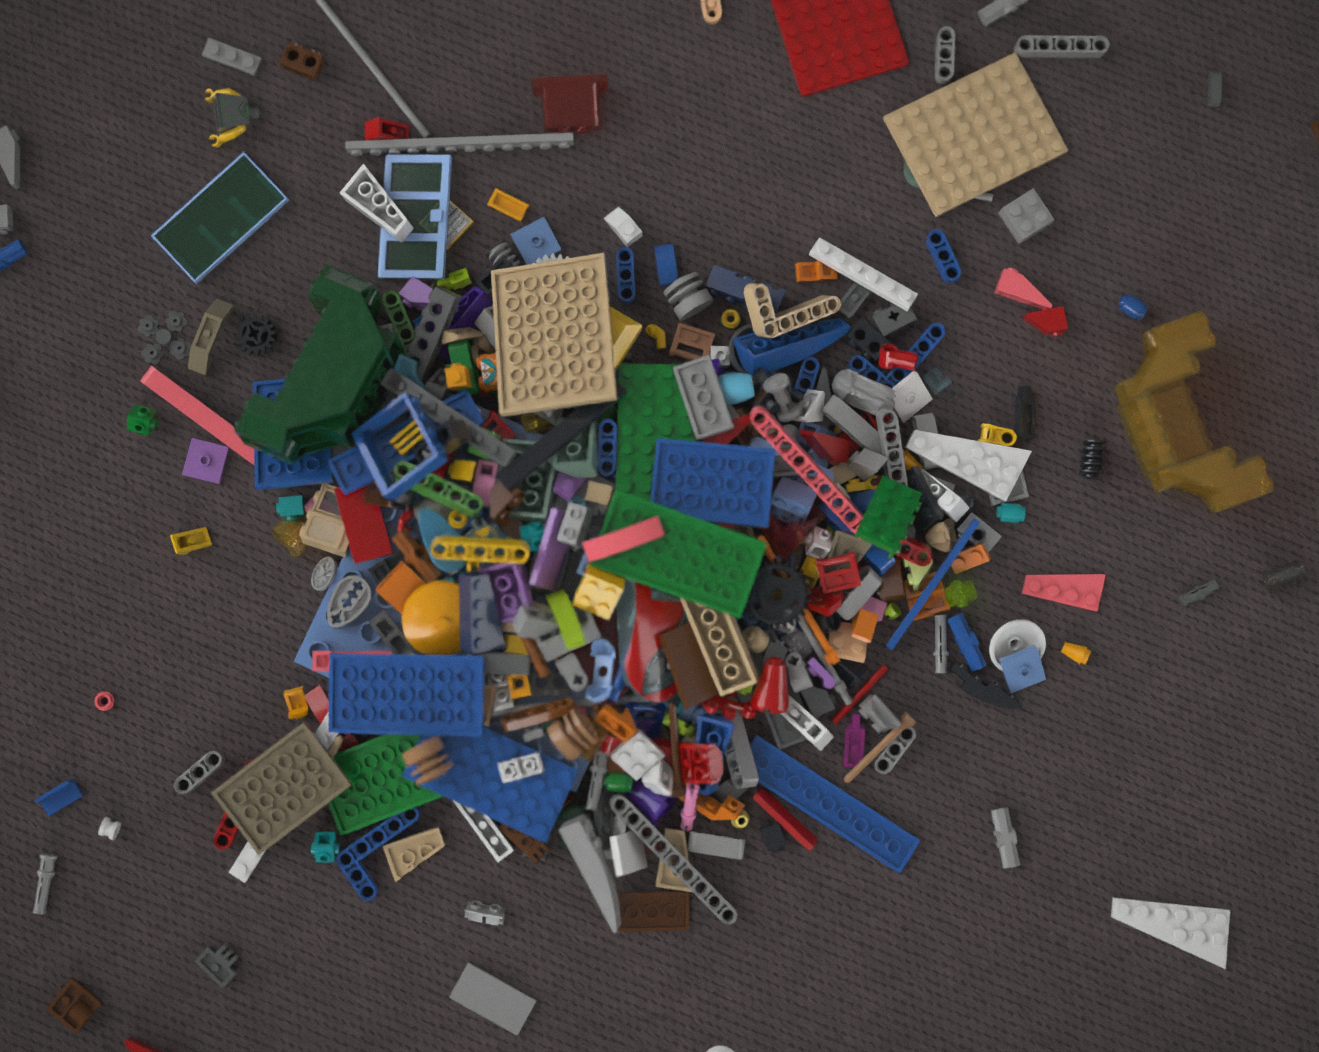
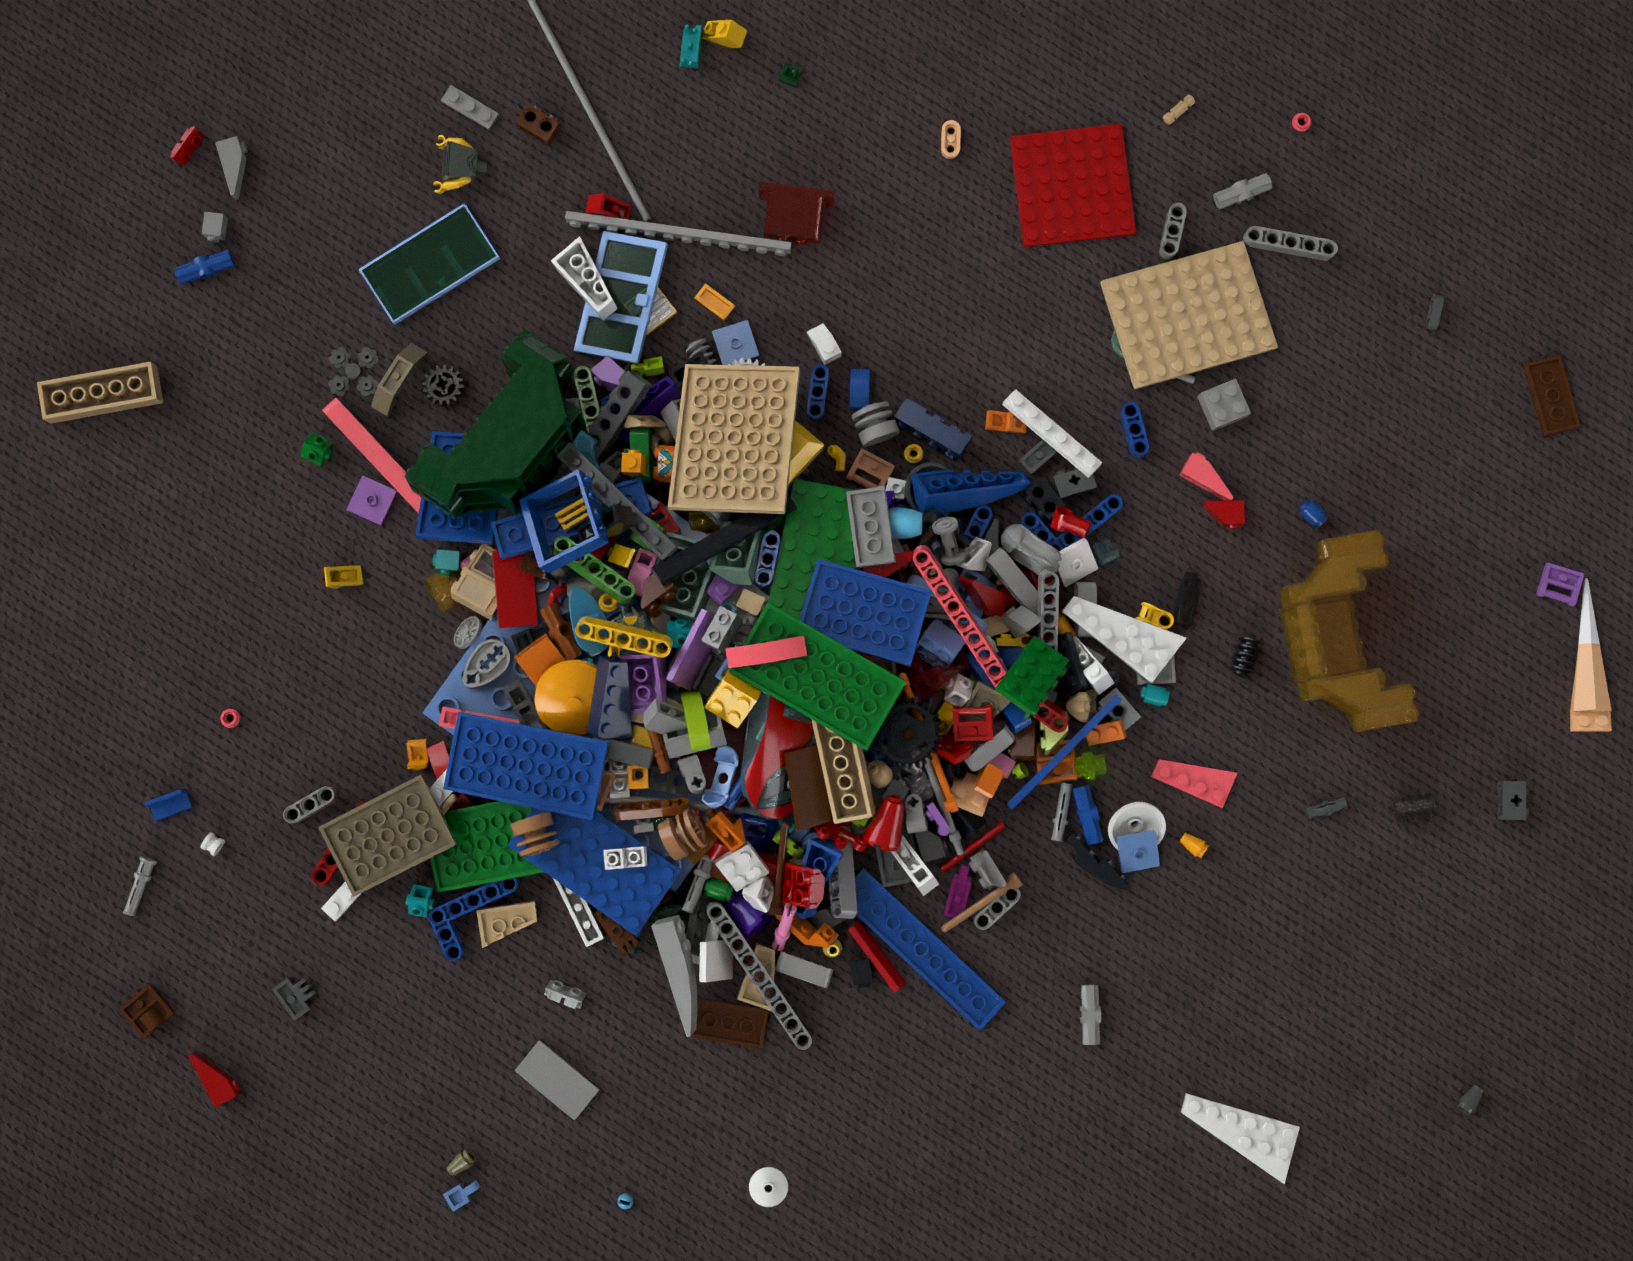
camera: 10 degrees right, 0 degrees up
(788, 316) = (970, 461): tan beam -> none

